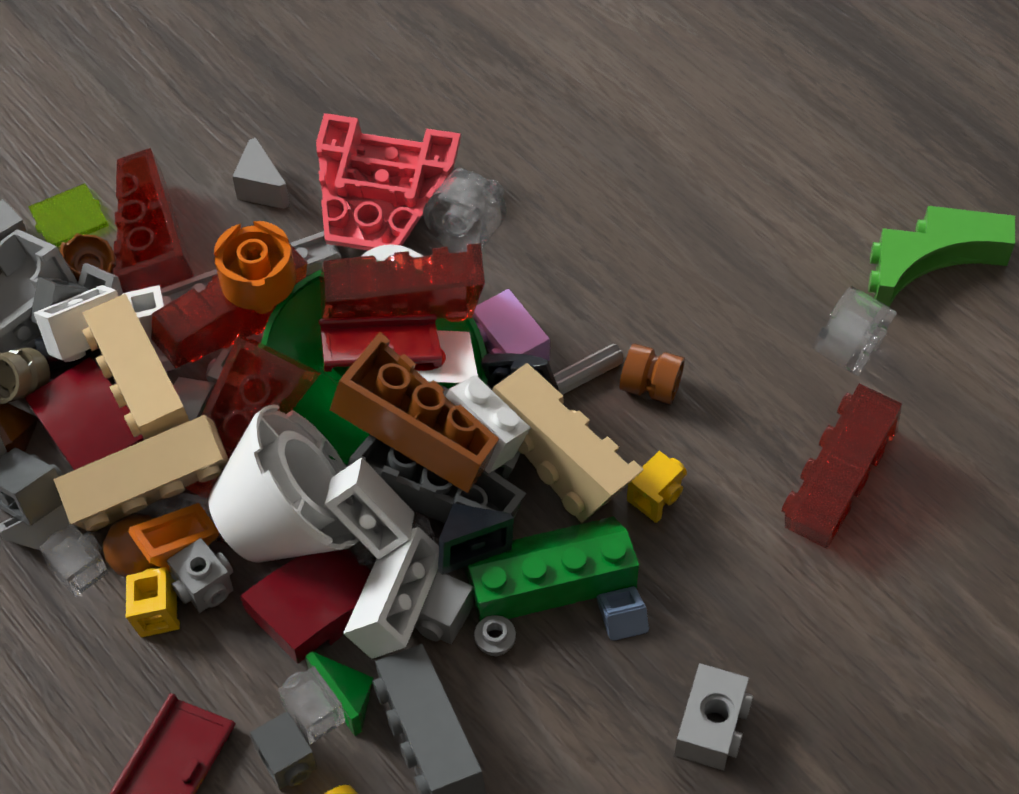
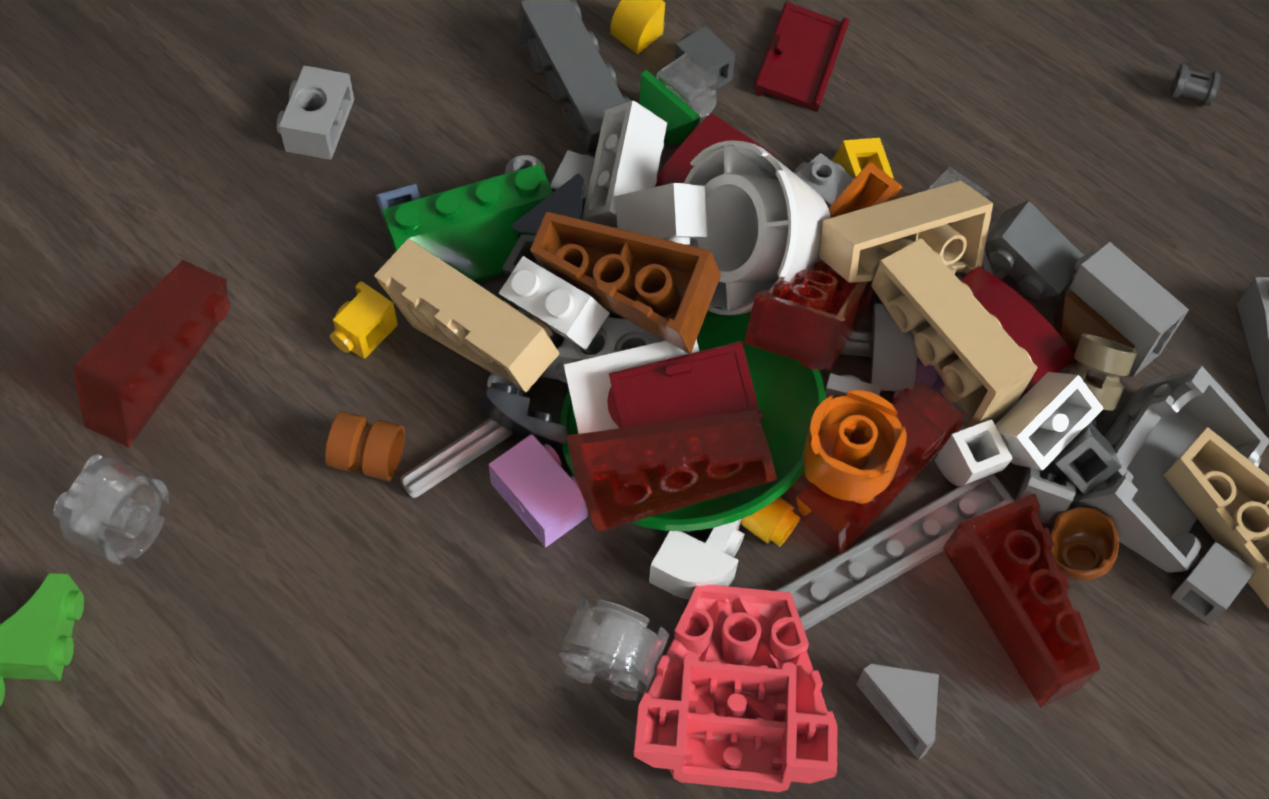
camera: 170 degrees right, 5 degrees up
(68, 214) = (1139, 636): clear neon green piece -> none

